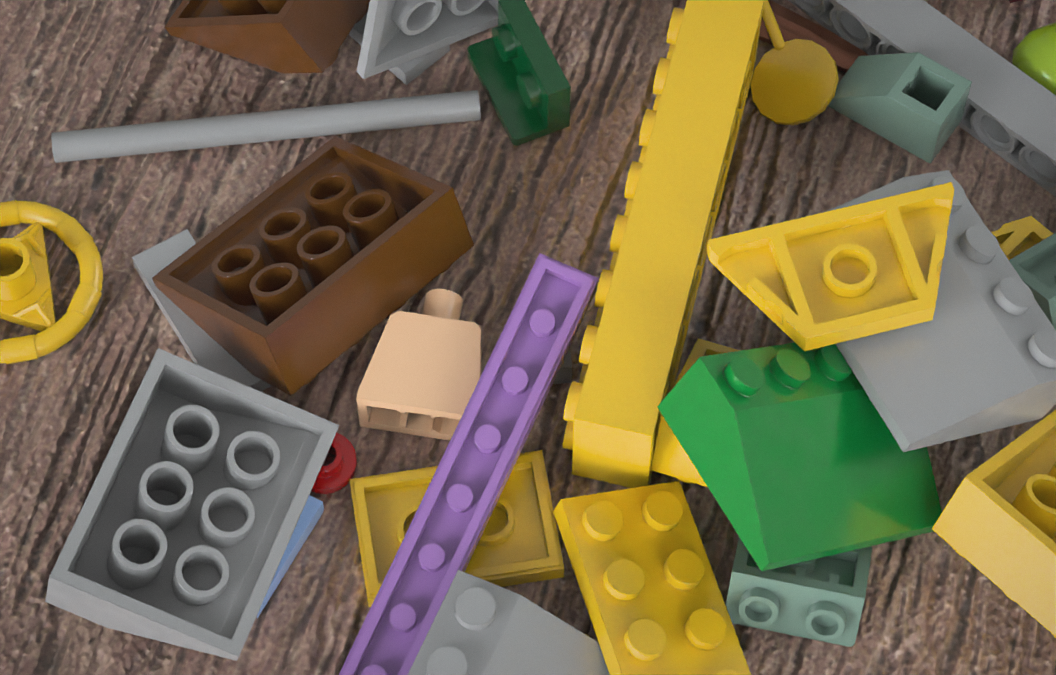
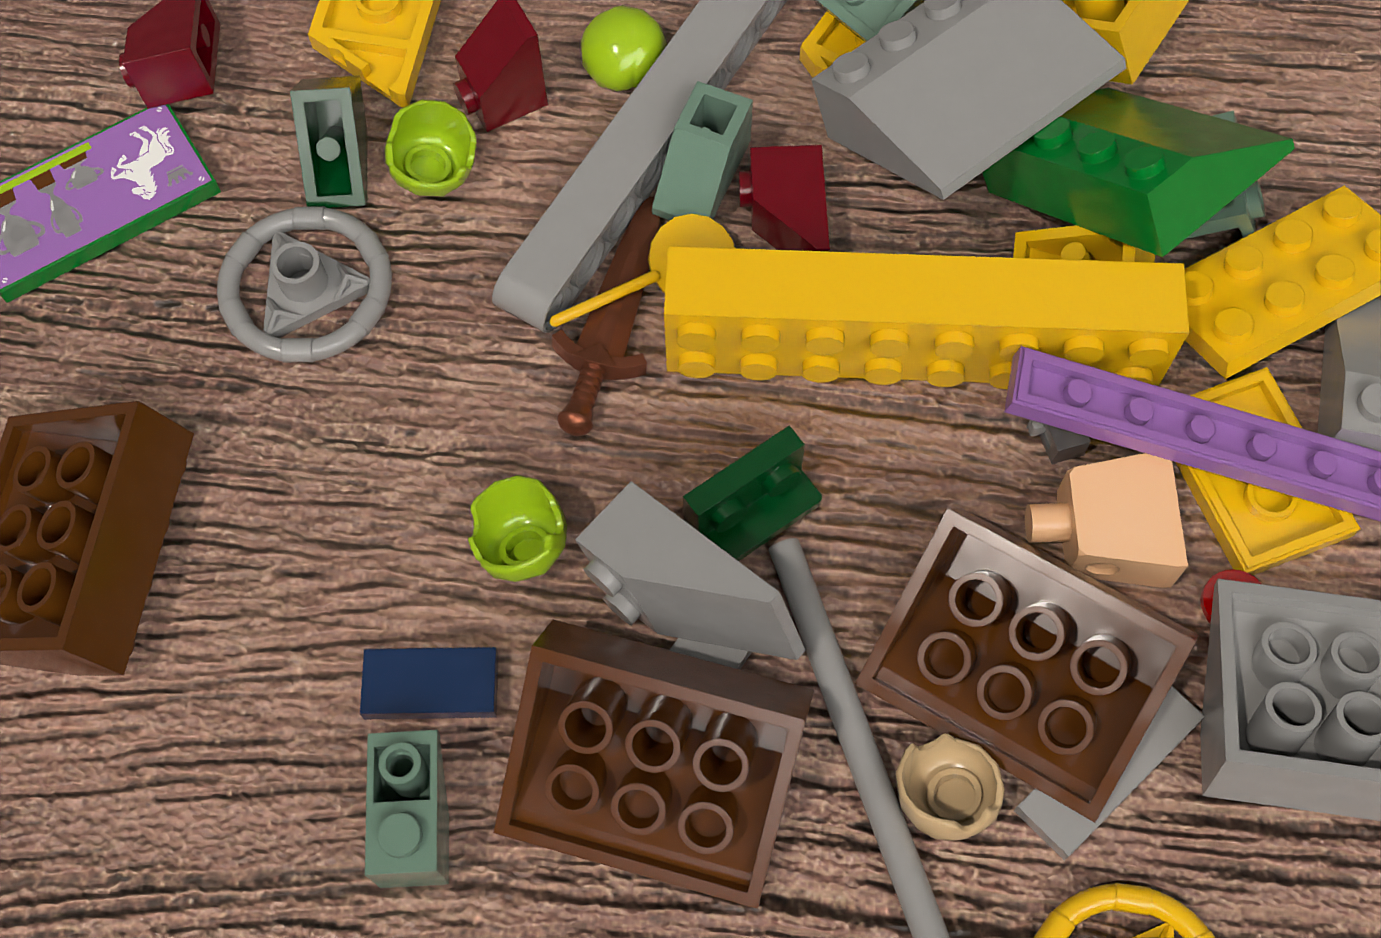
camera: 100 degrees left, 5 degrees up
(214, 166) = (949, 788): none -> tan hair
(830, 168) = (787, 196): none -> dark red slope
(844, 267) = (980, 113): yellow wing -> none

